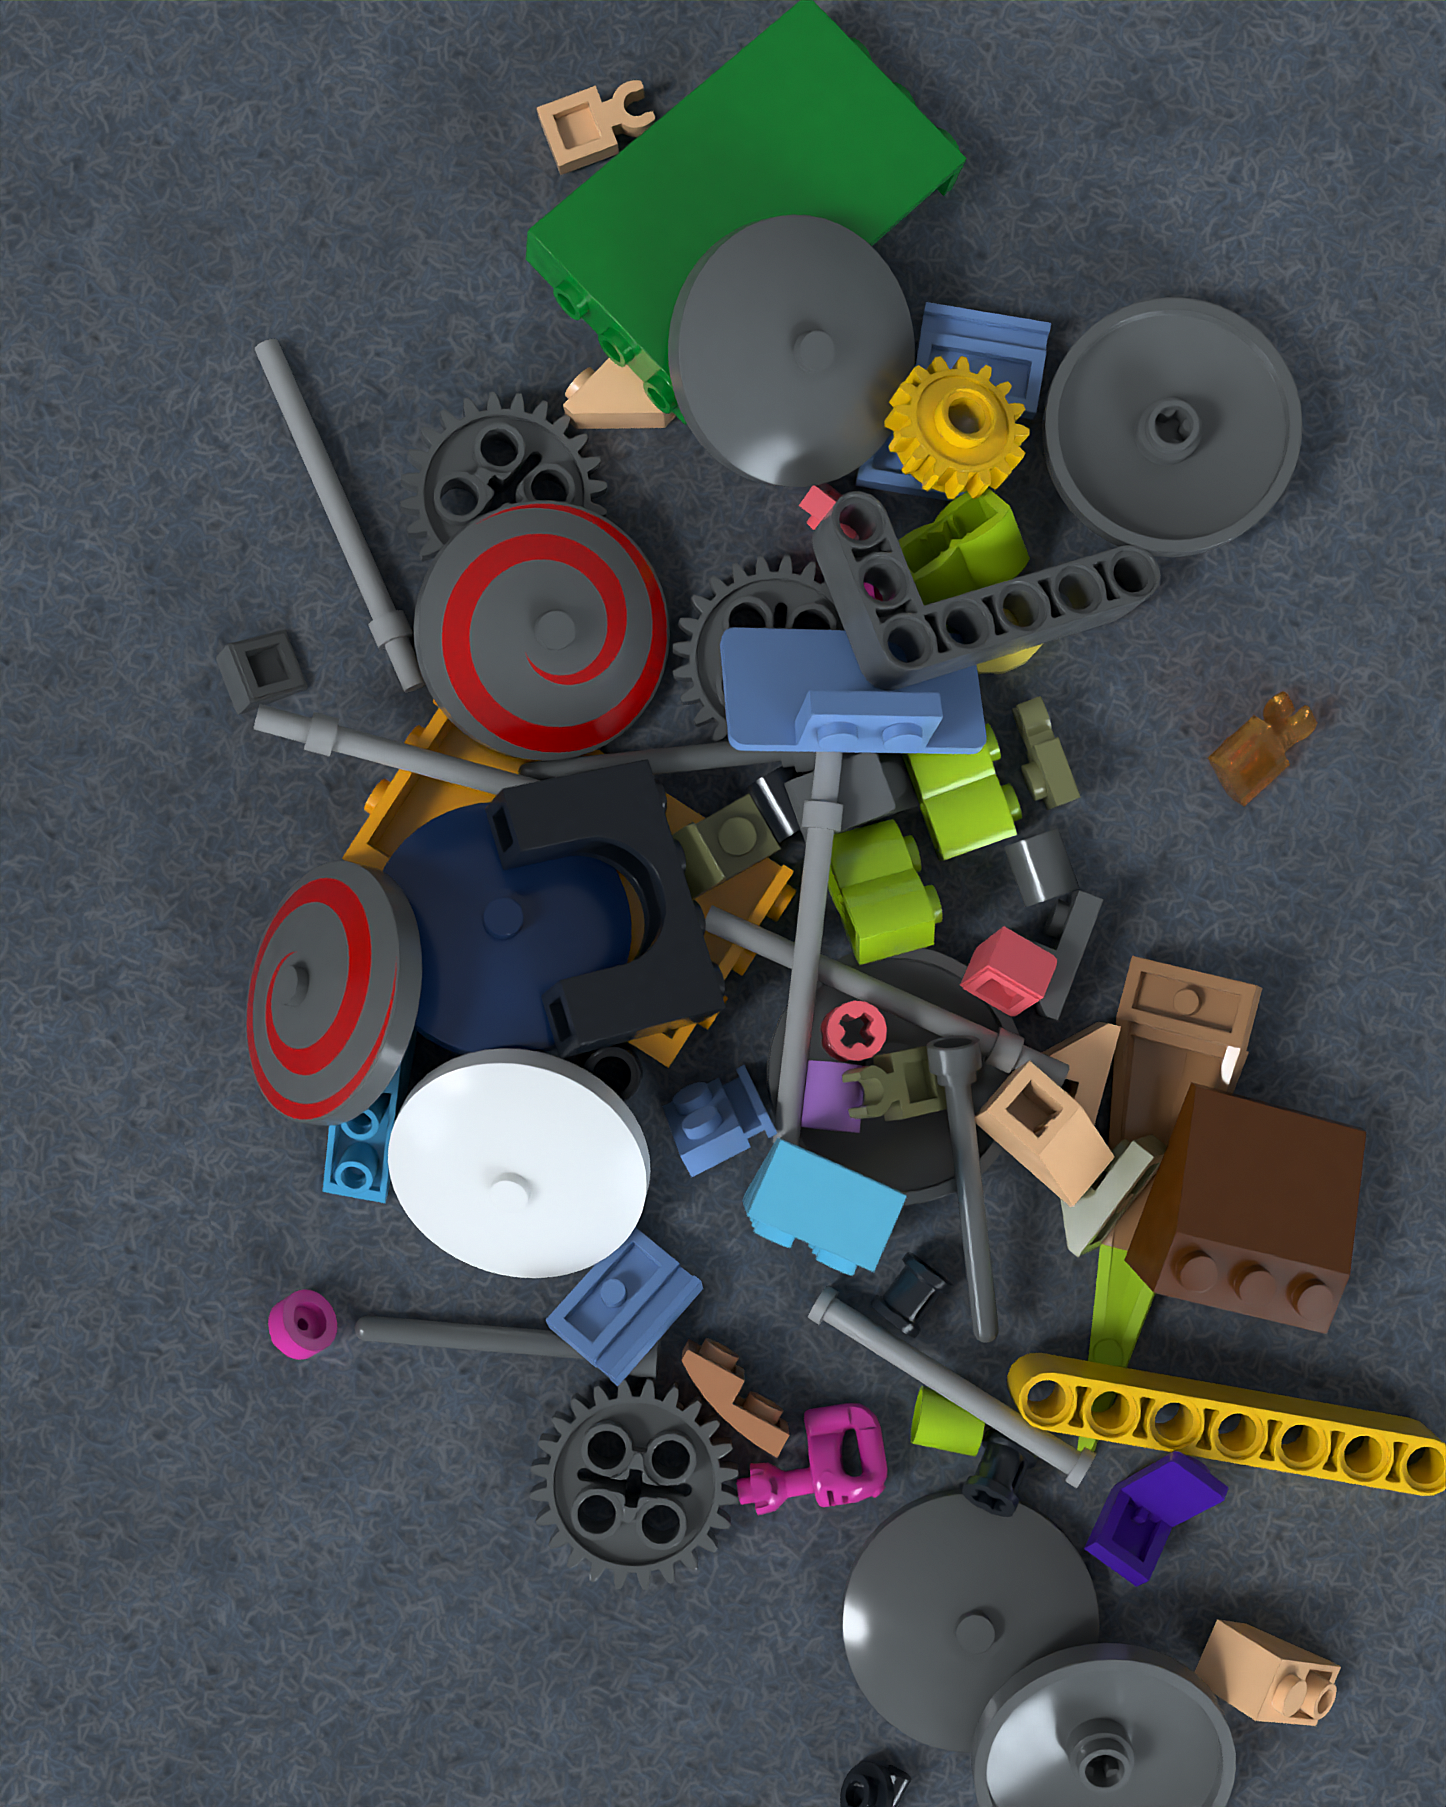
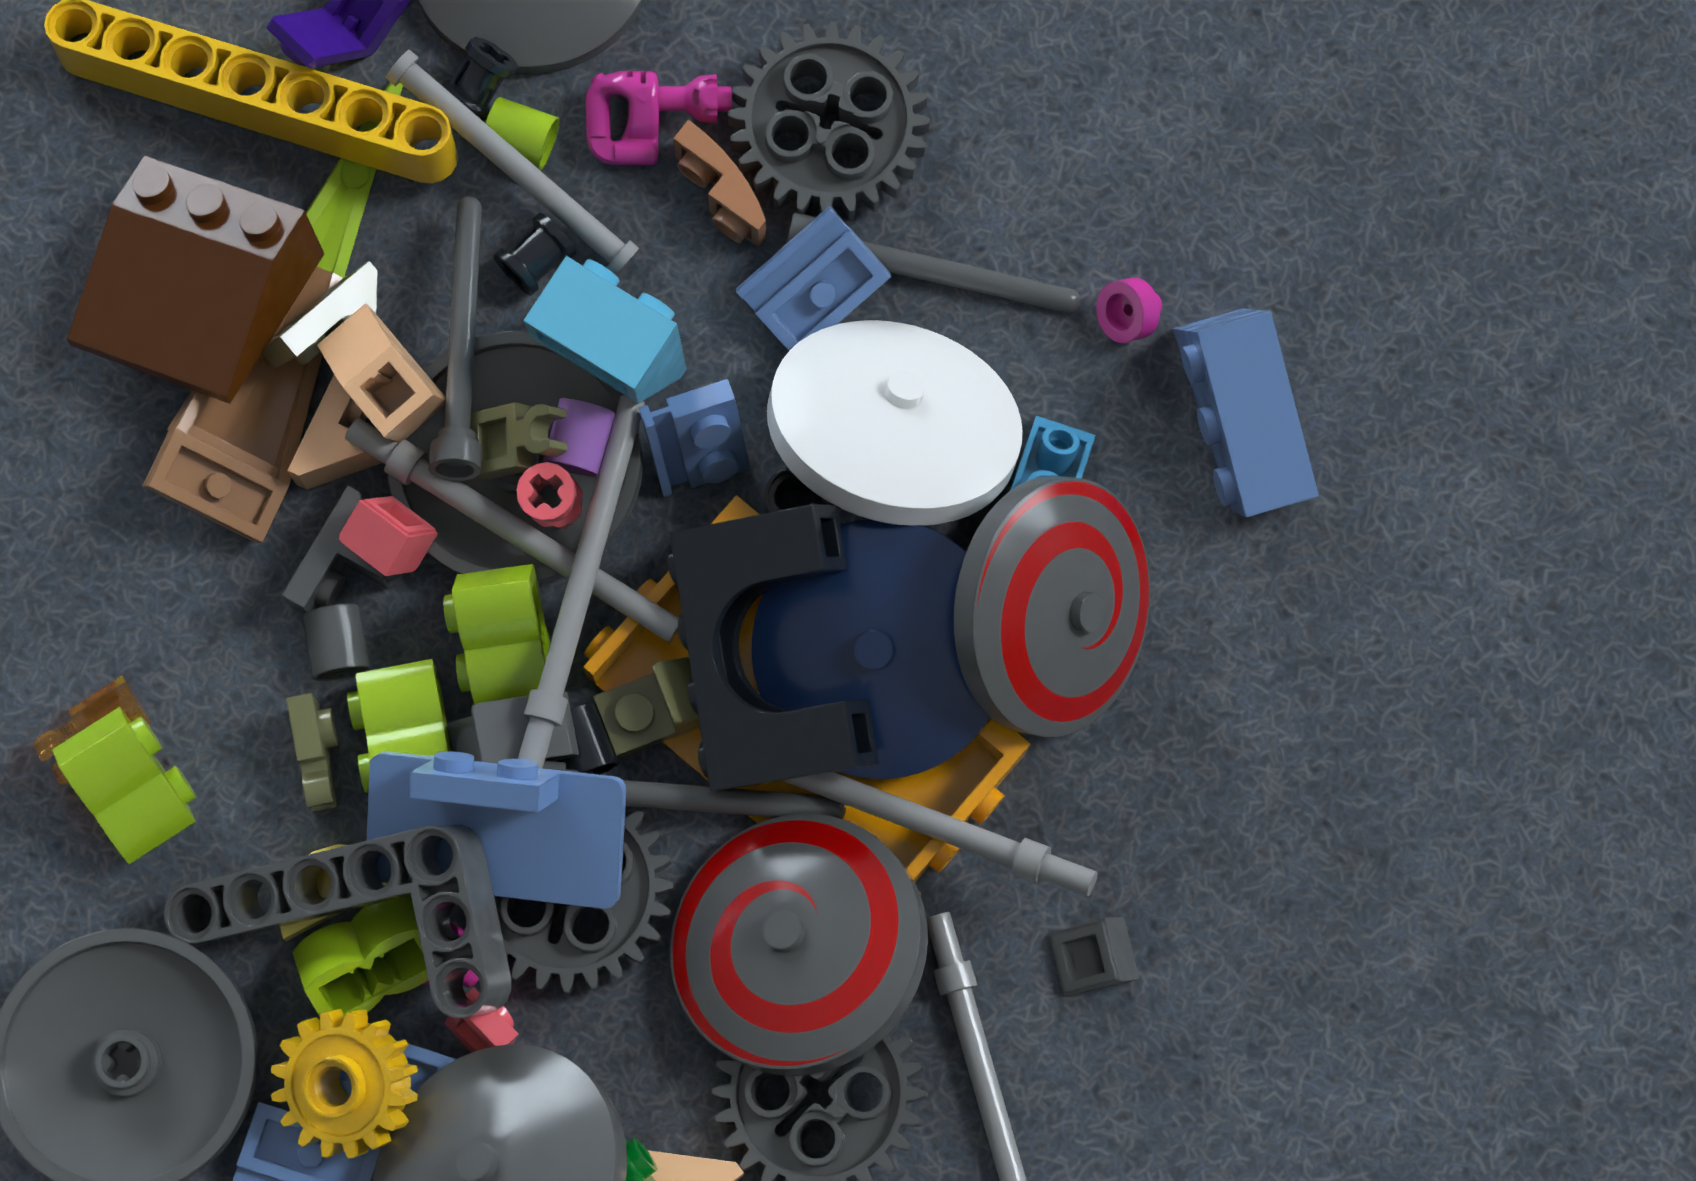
camera: 175 degrees left, 10 degrees down
(168, 1237) = (1247, 411): none -> medium blue wedge
(1221, 691) = (125, 784): none -> lime brick

